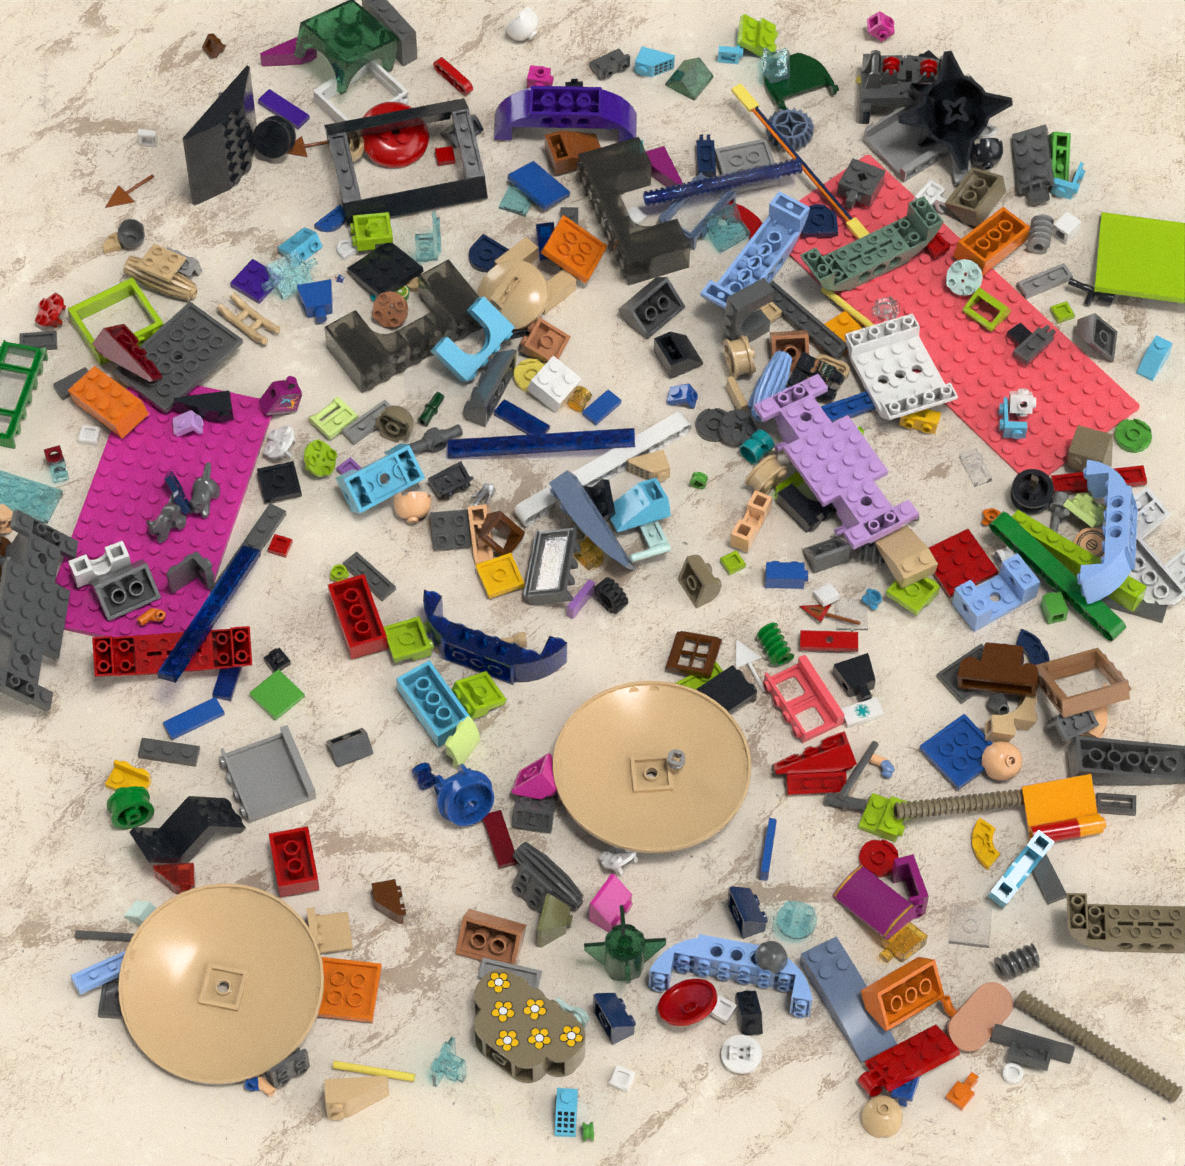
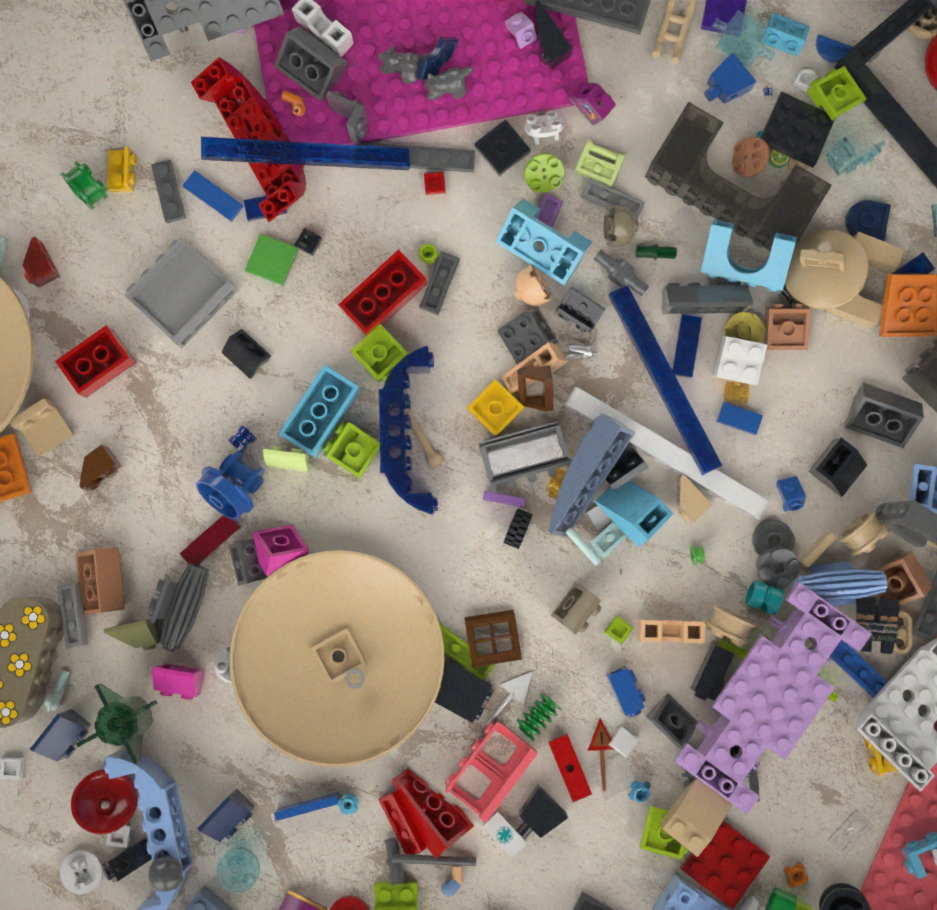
camera: 70 degrees right, 25 degrees up
(187, 830) = (79, 248): black bracket -> none
(631, 538) = (598, 517): none -> white tile
(782, 824) = (353, 800): none -> medium azure plate

